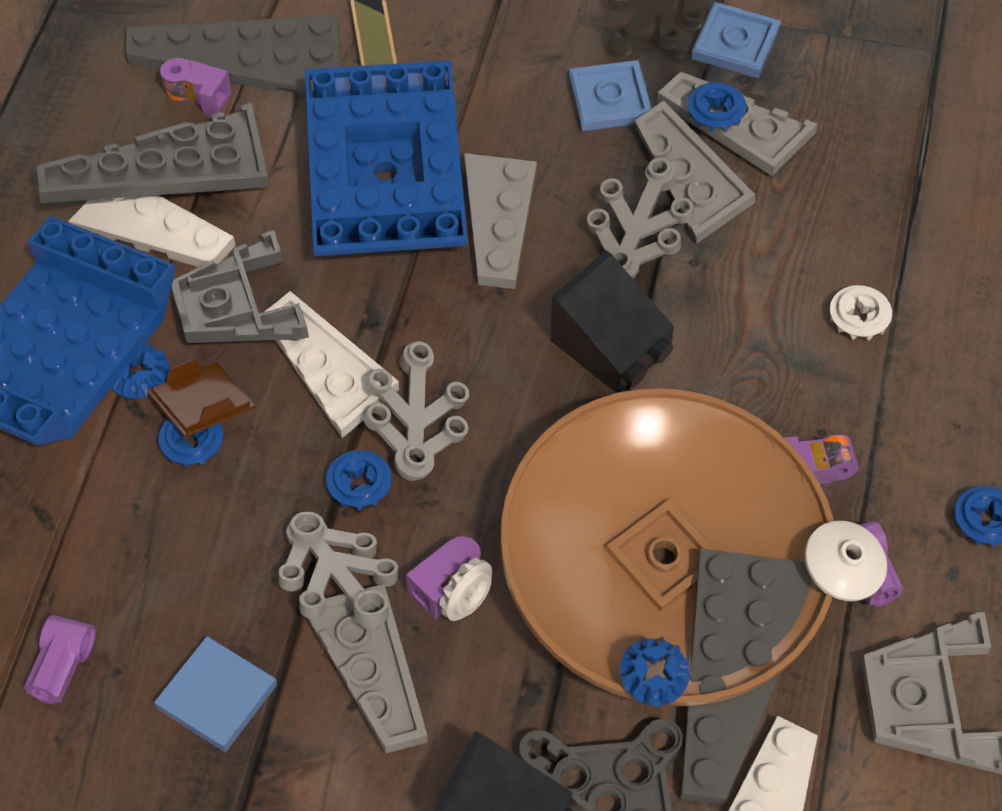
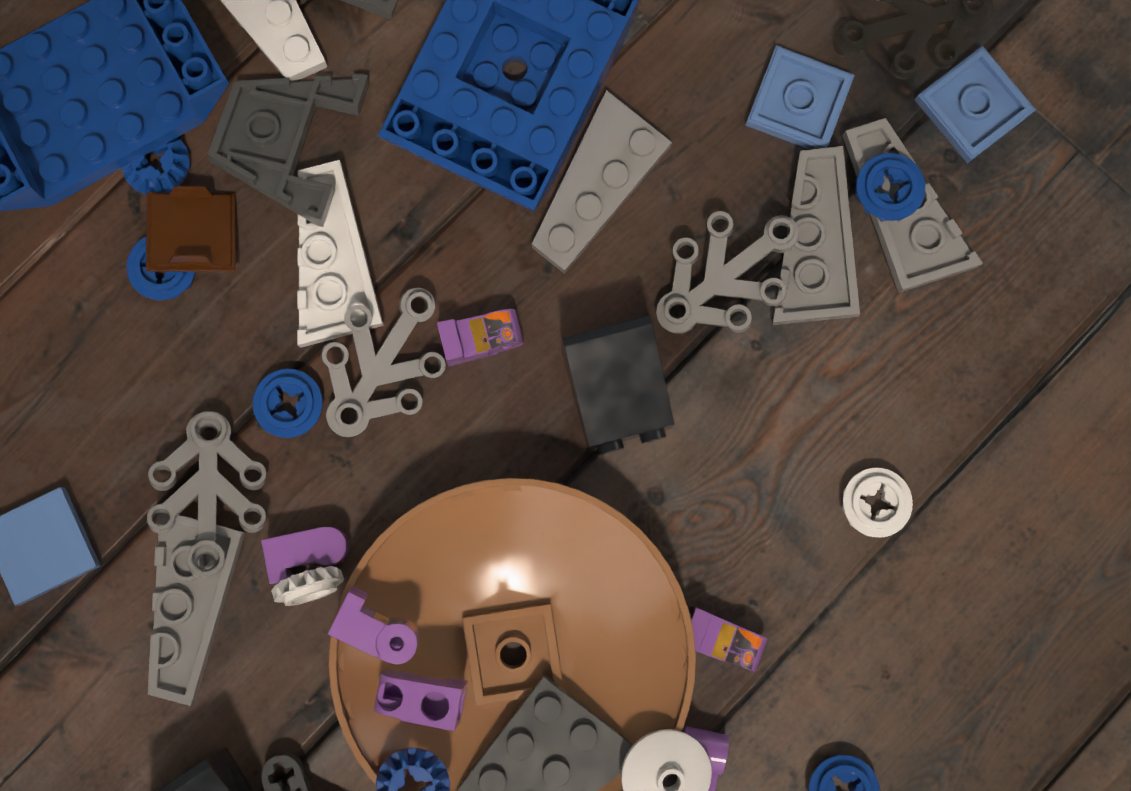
camera: 25 degrees right, 25 degrees up
(480, 355) = (480, 336): none -> medium lavender leg
(547, 562) = (372, 632): none -> medium lavender leg
(619, 593) = (421, 699): none -> medium lavender leg

